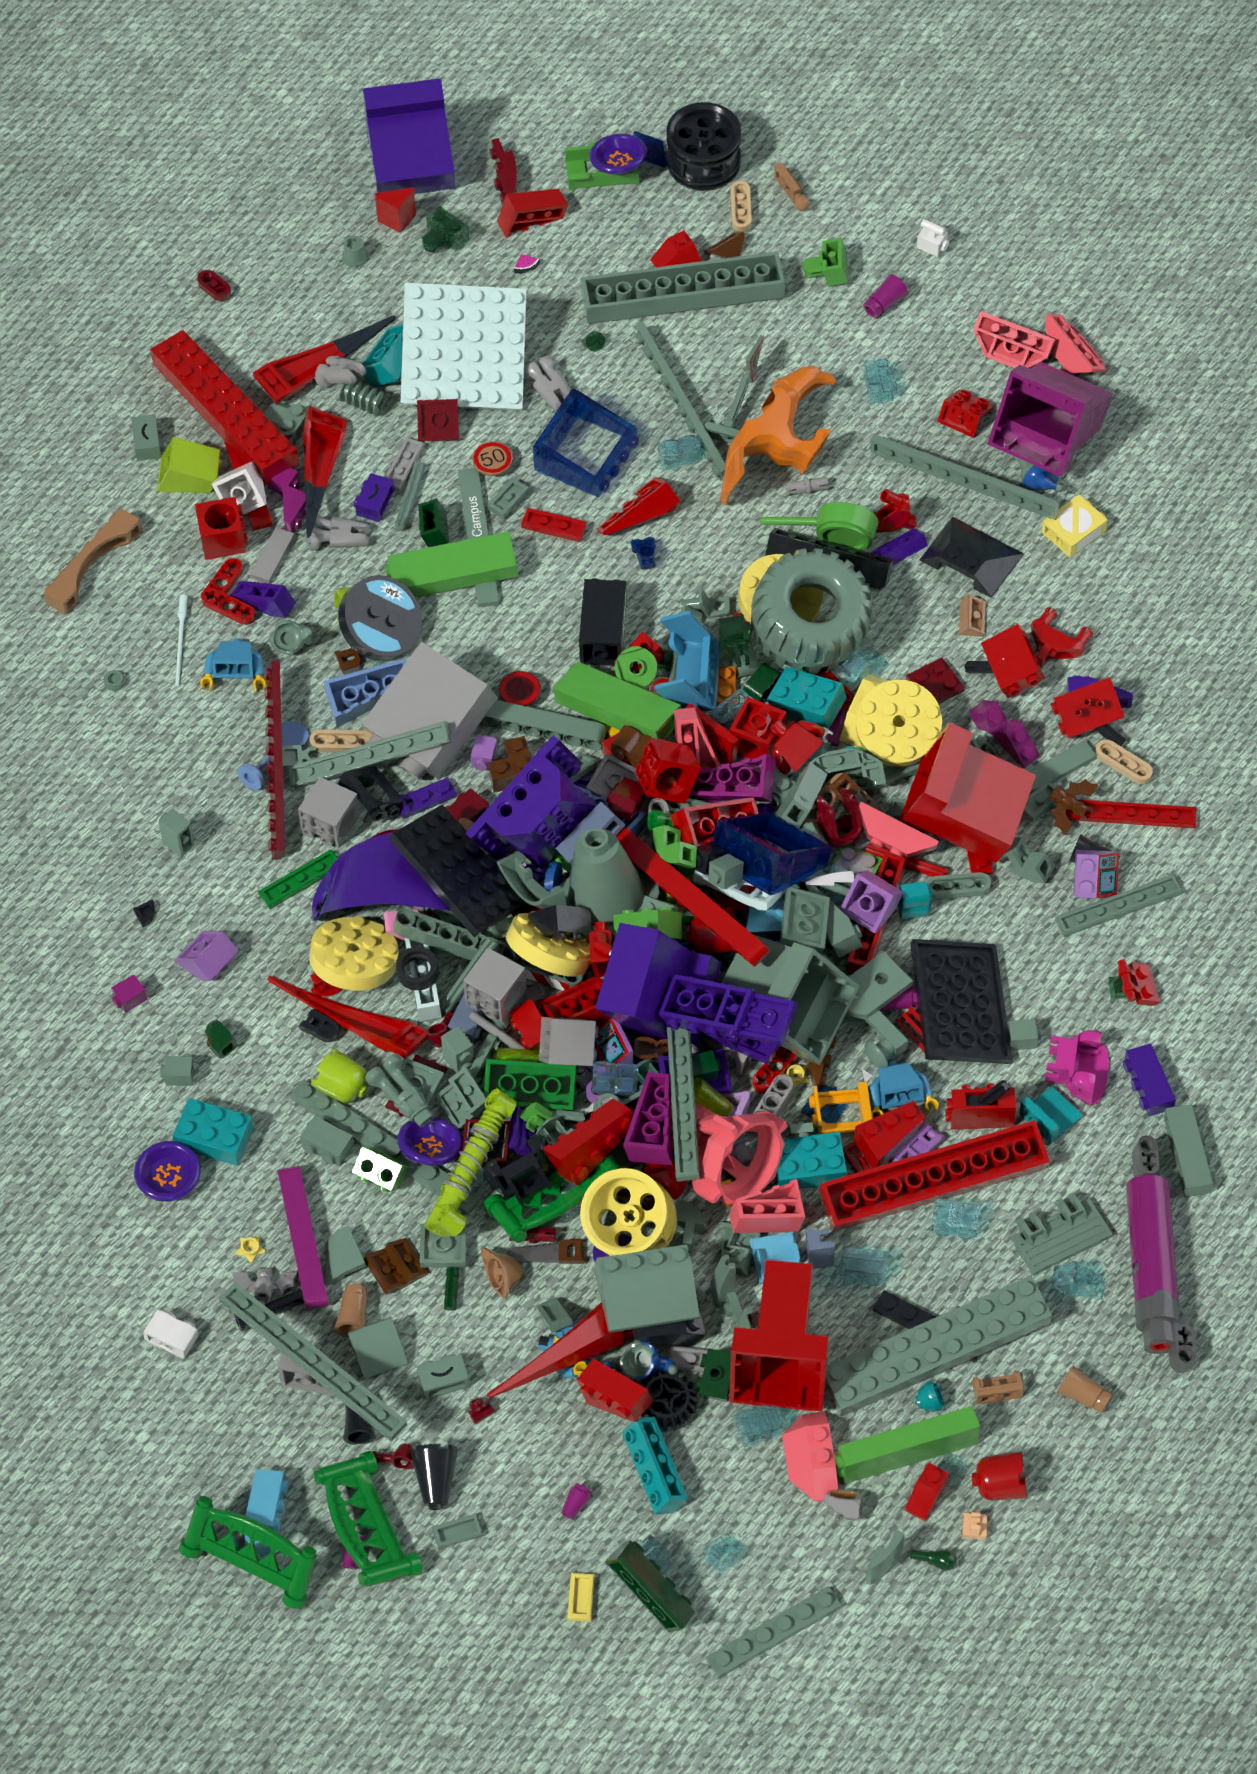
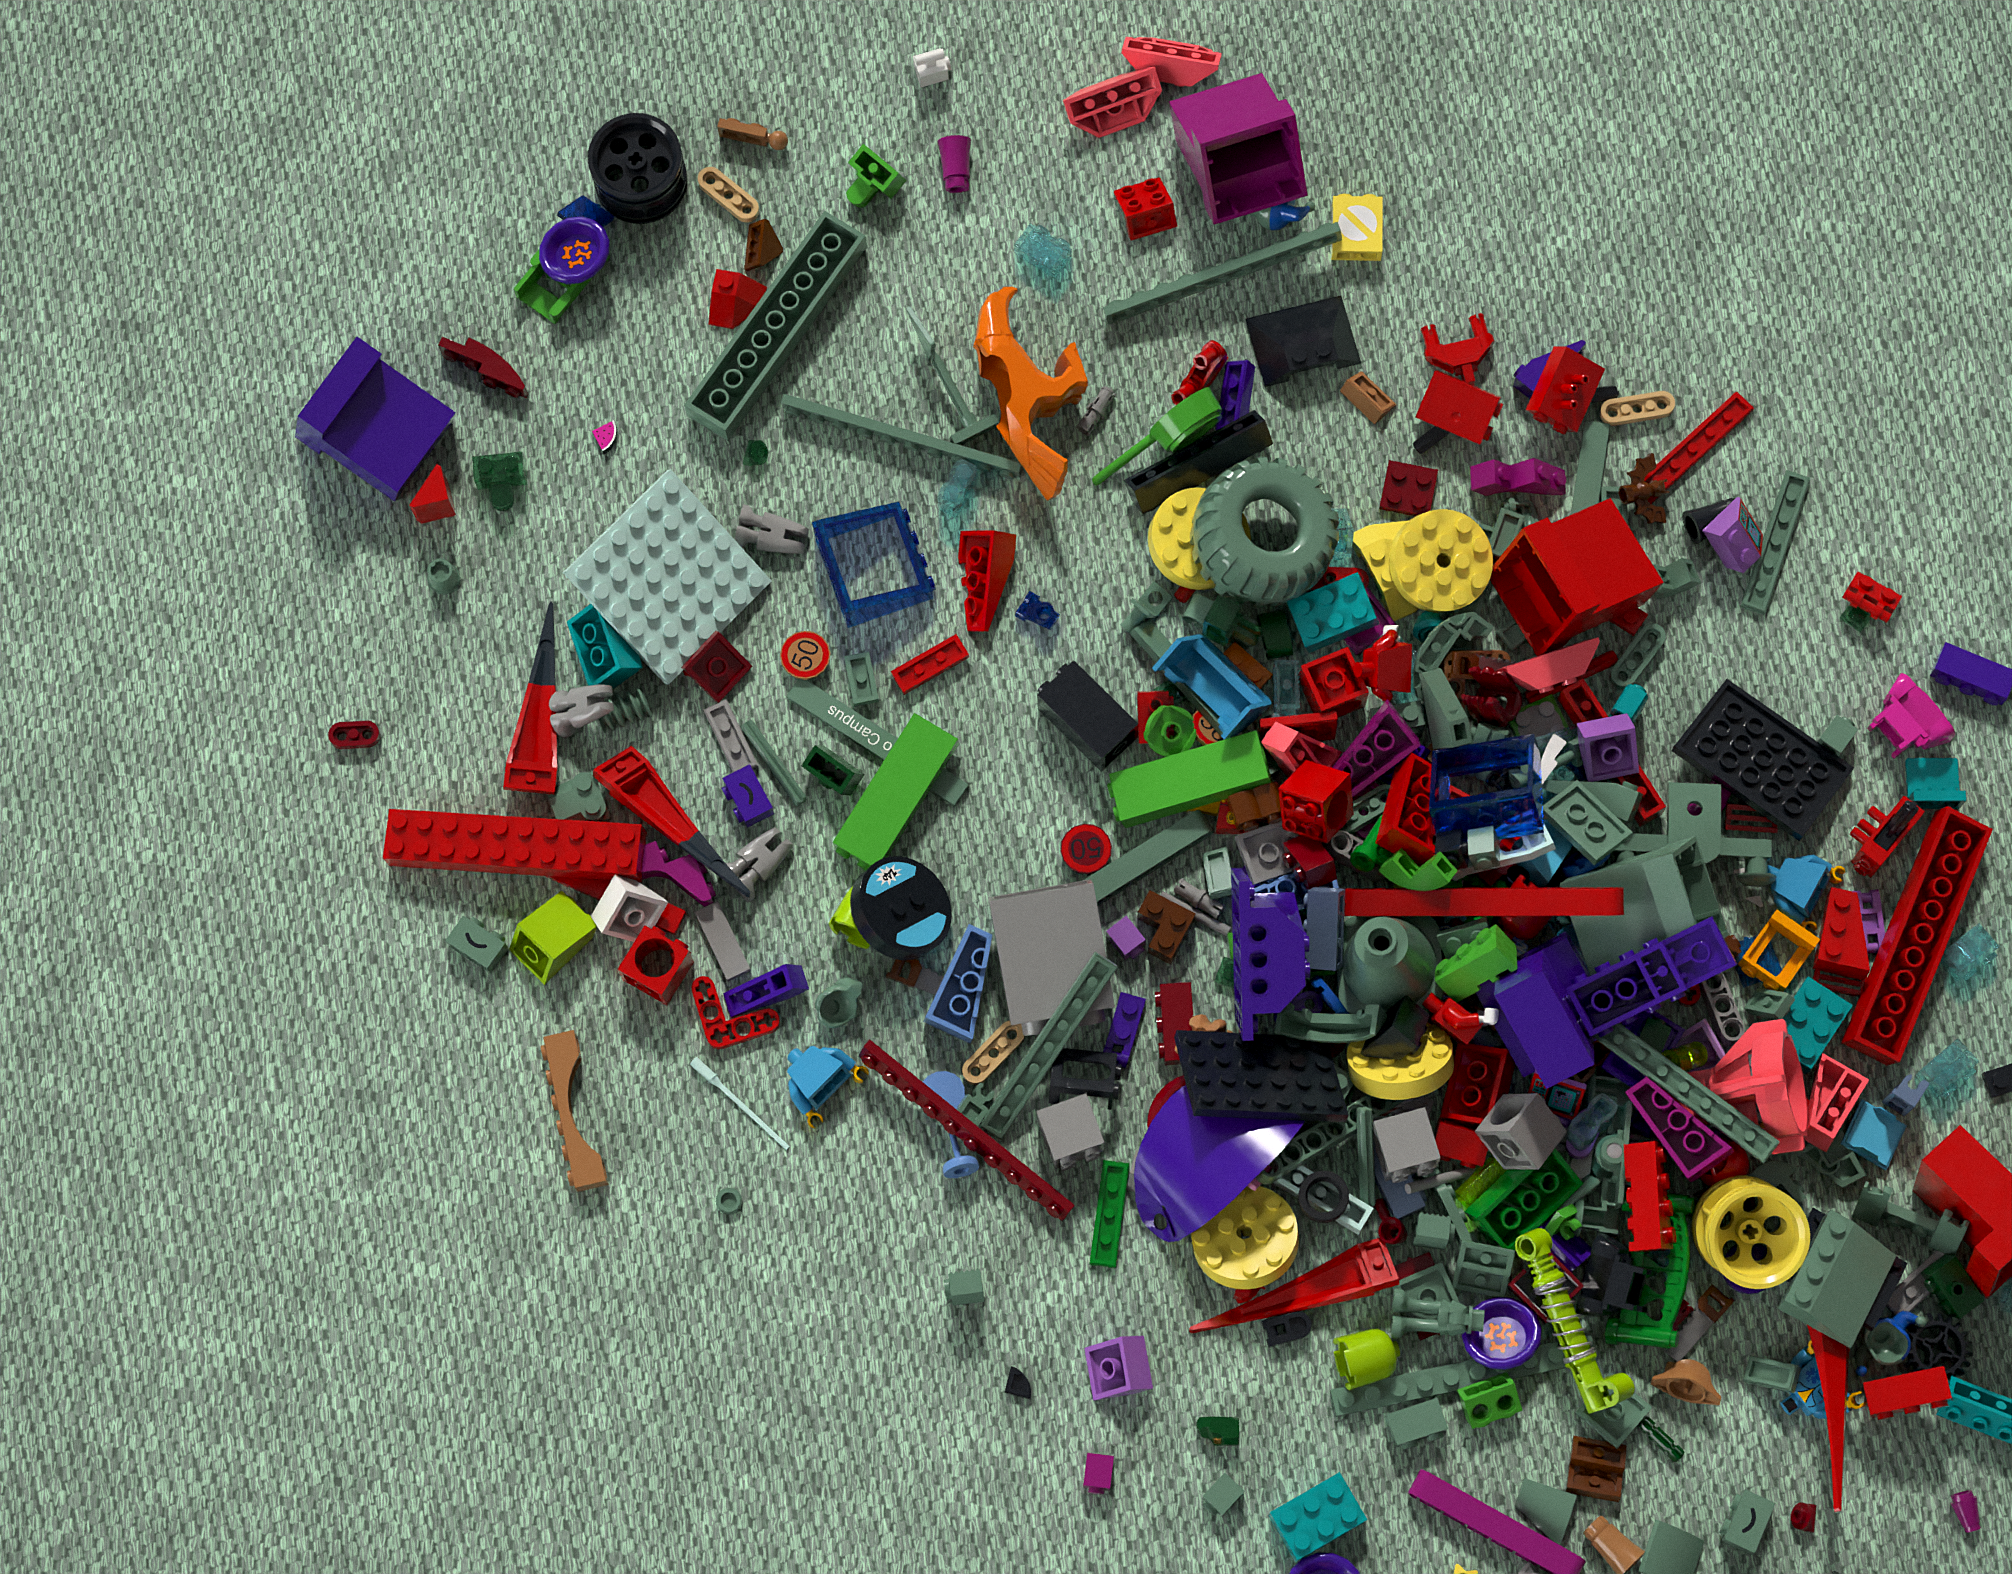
camera: 45 degrees left, 15 degrees up
(529, 209) = (552, 379): red wedge -> none

